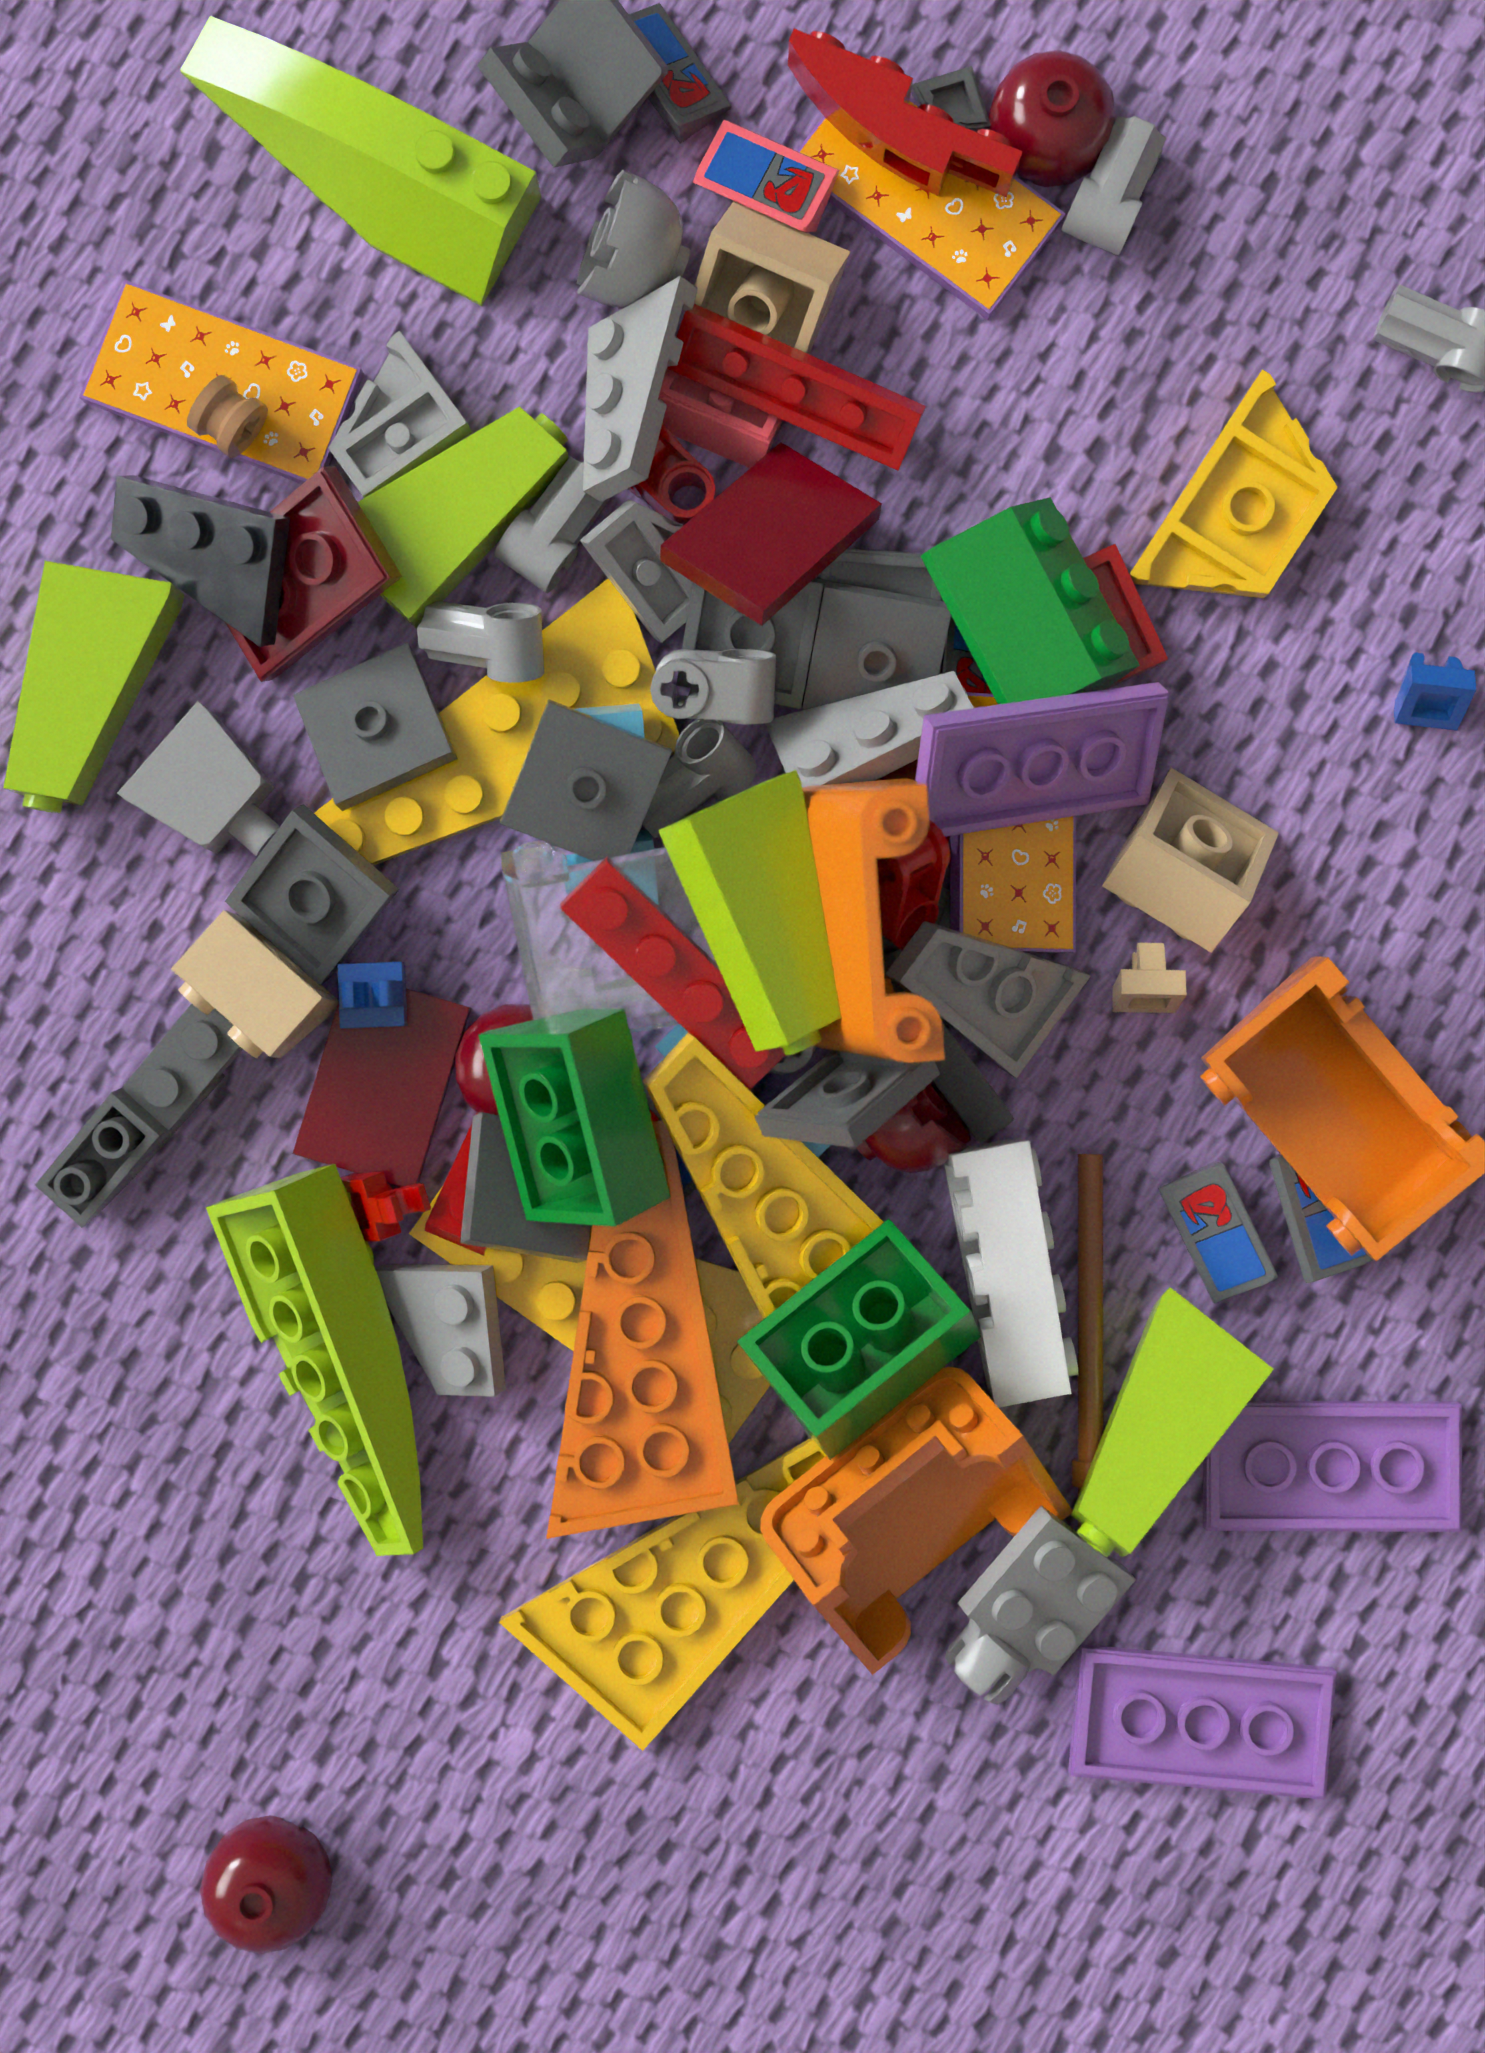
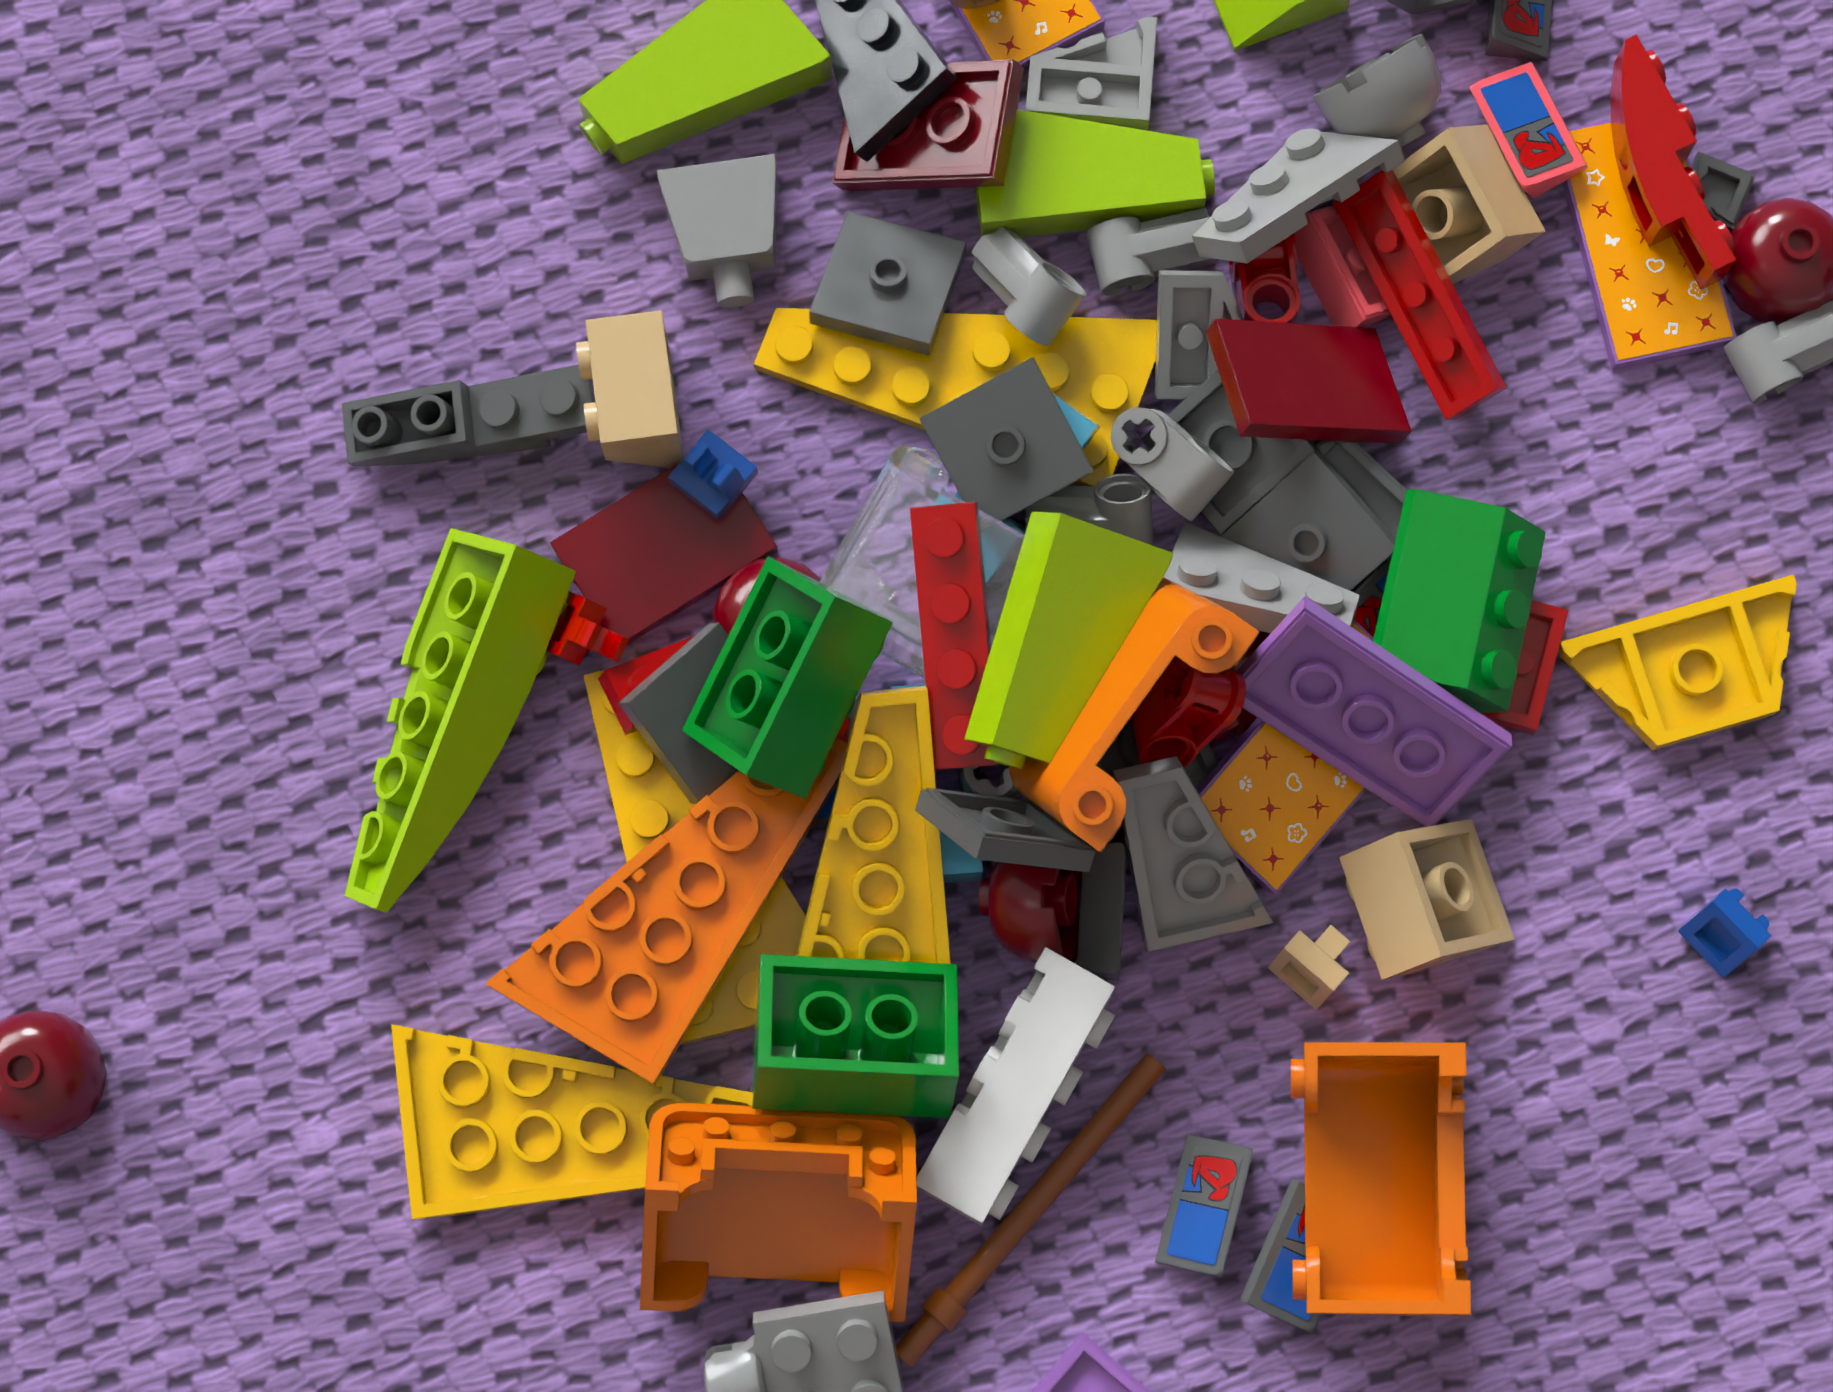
camera: 40 degrees right, 10 degrees down
(311, 894) = (733, 363): dark grey plate -> none
(449, 1324) = (553, 768): light grey wing -> none
(1169, 1414) = (1040, 1309): lime slope -> none

